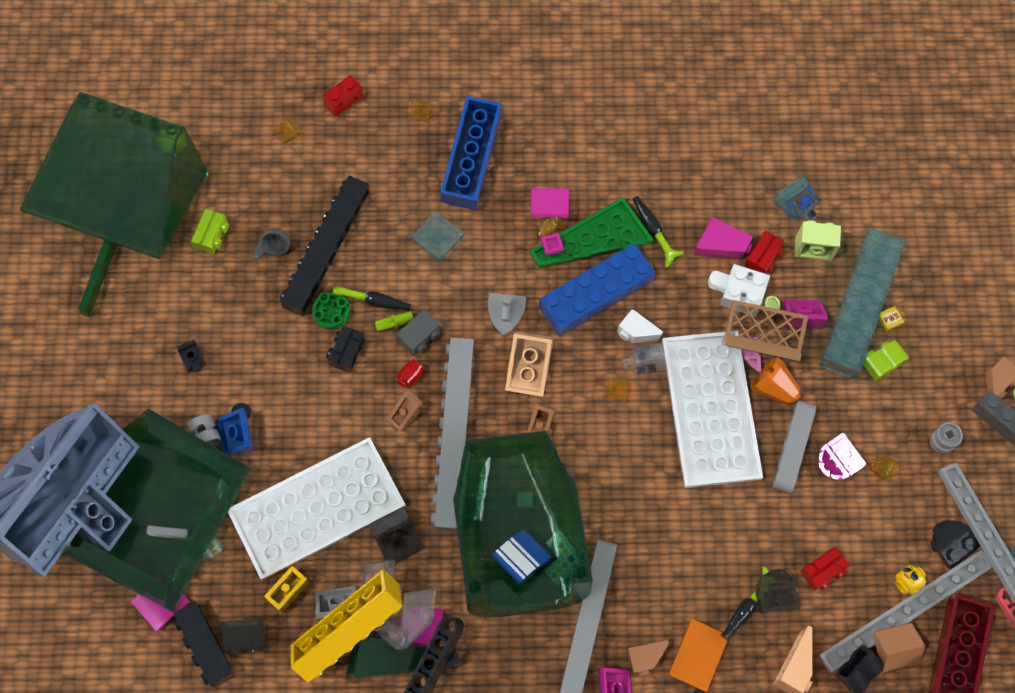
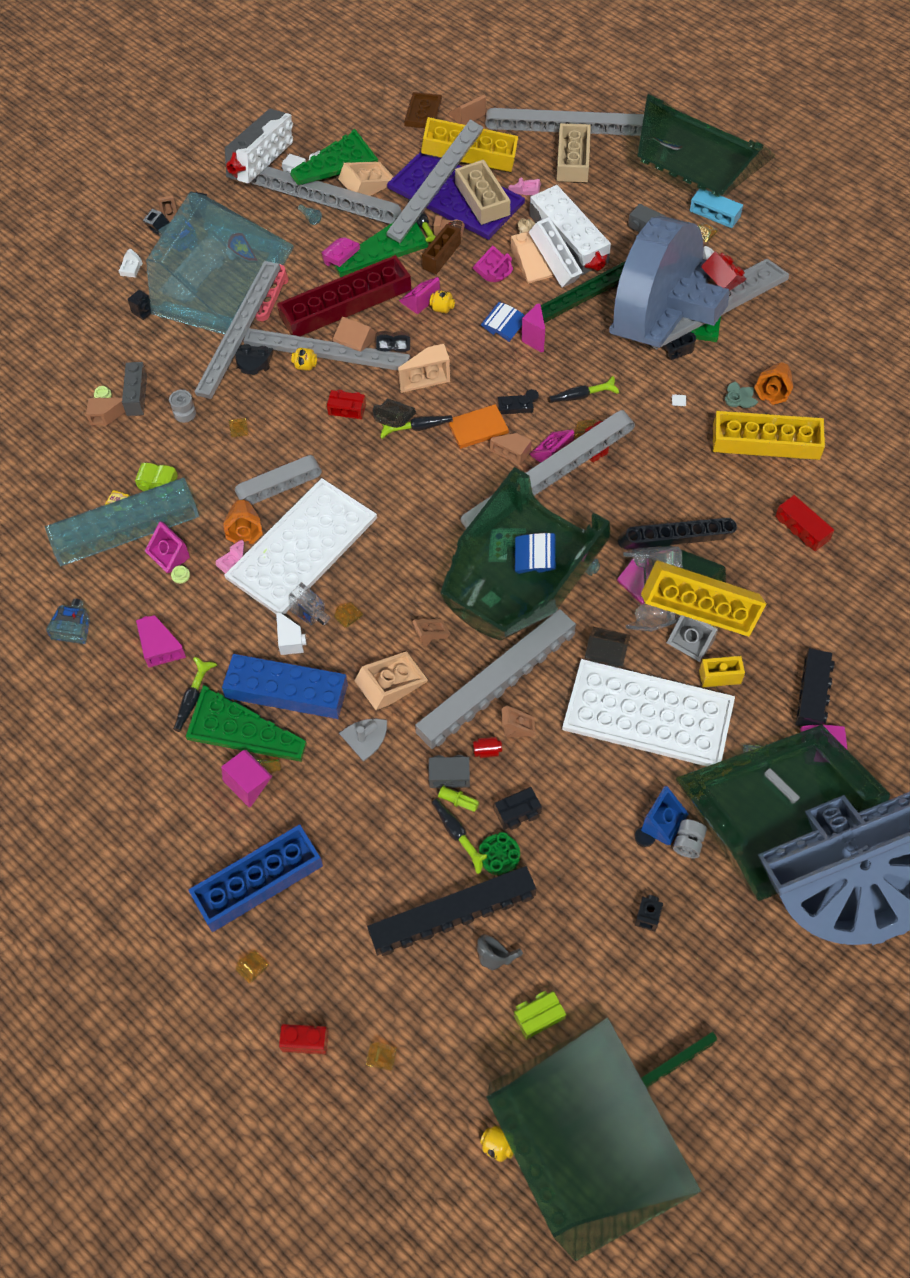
camera: 130 degrees left, 10 degrees down
(245, 636) = (777, 668): clear smoke slope -> none
(437, 236) = (355, 837): clear light blue plate -> none
(552, 244) = (279, 745): dark pink tile -> none
(740, 285) = (187, 598): white brick -> none
(764, 253) = (140, 606): red brick -> none
(765, 347) = (223, 544): medium nougat fence -> none
(817, 240) = (97, 579): yellowish green brick -> none
(840, 458) = (259, 451): slope -> none

